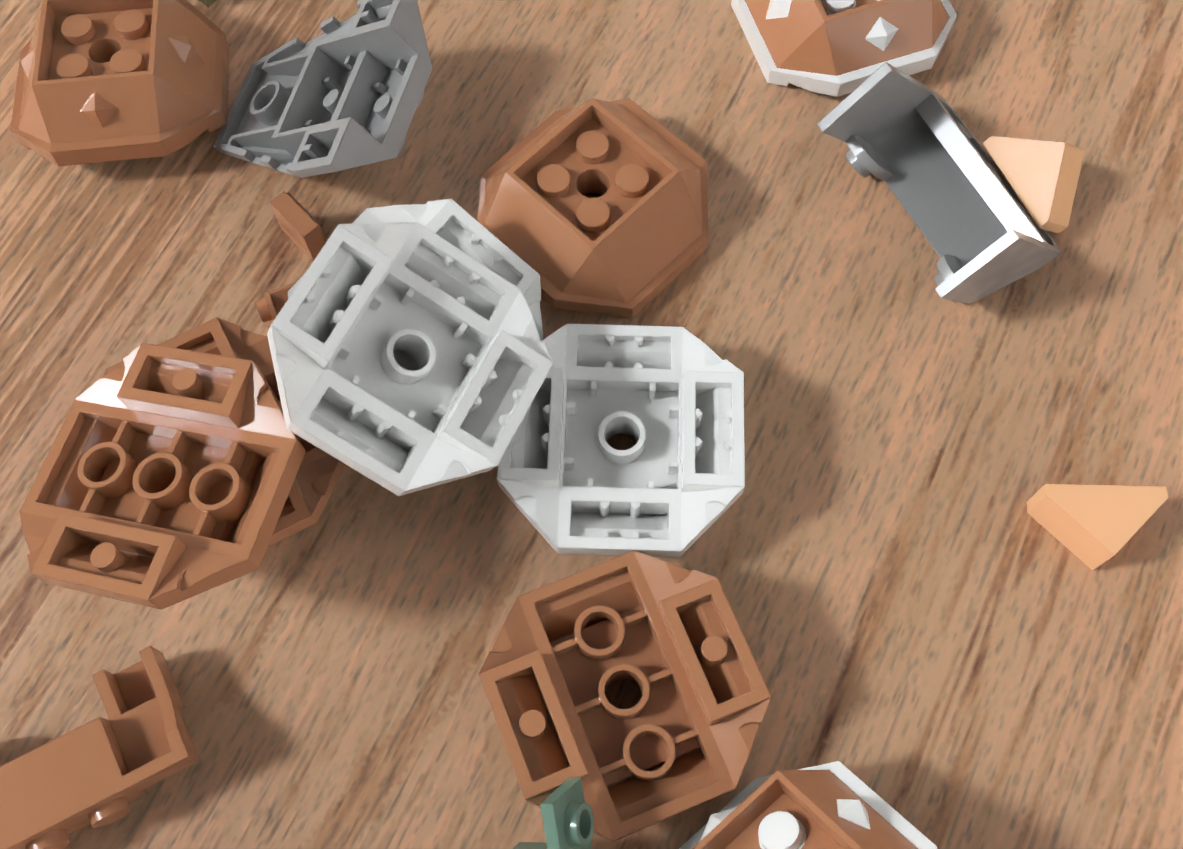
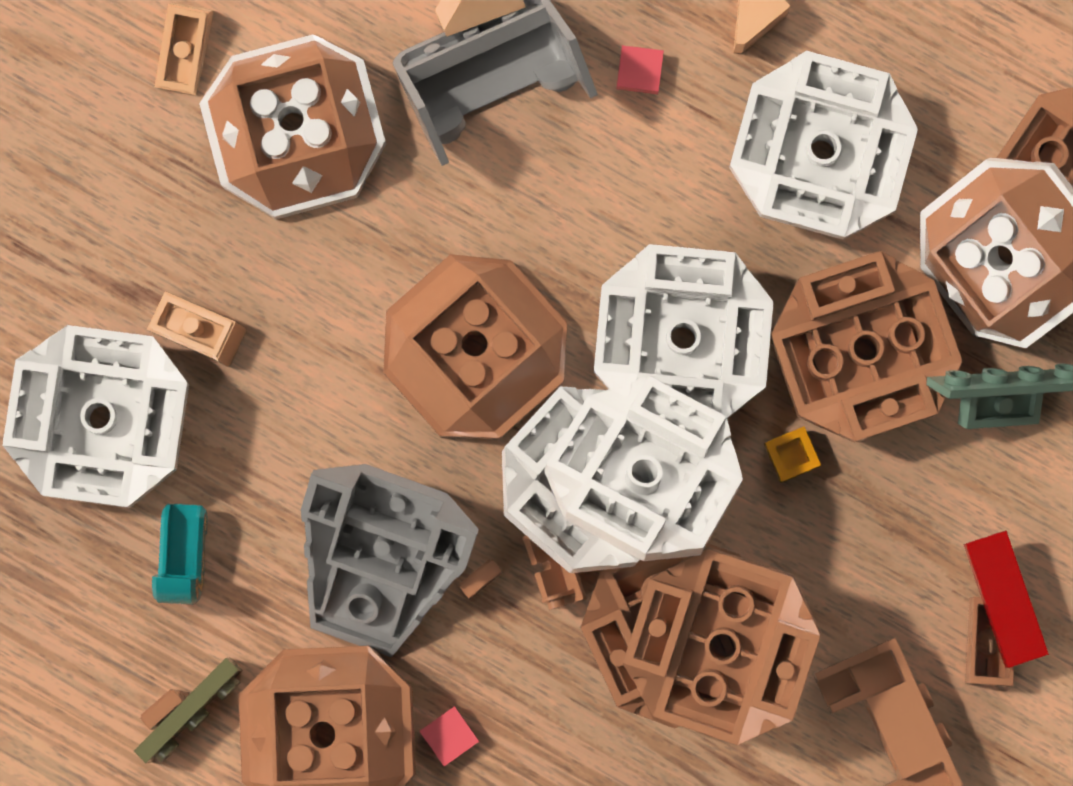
camera: 85 degrees left, 15 degrees up
(111, 212) = (449, 736): none -> coral tile
(469, 604) = (792, 454): none -> light orange plate
(981, 380) = (640, 69): none -> coral tile
(982, 609) = (832, 103): none -> white piece

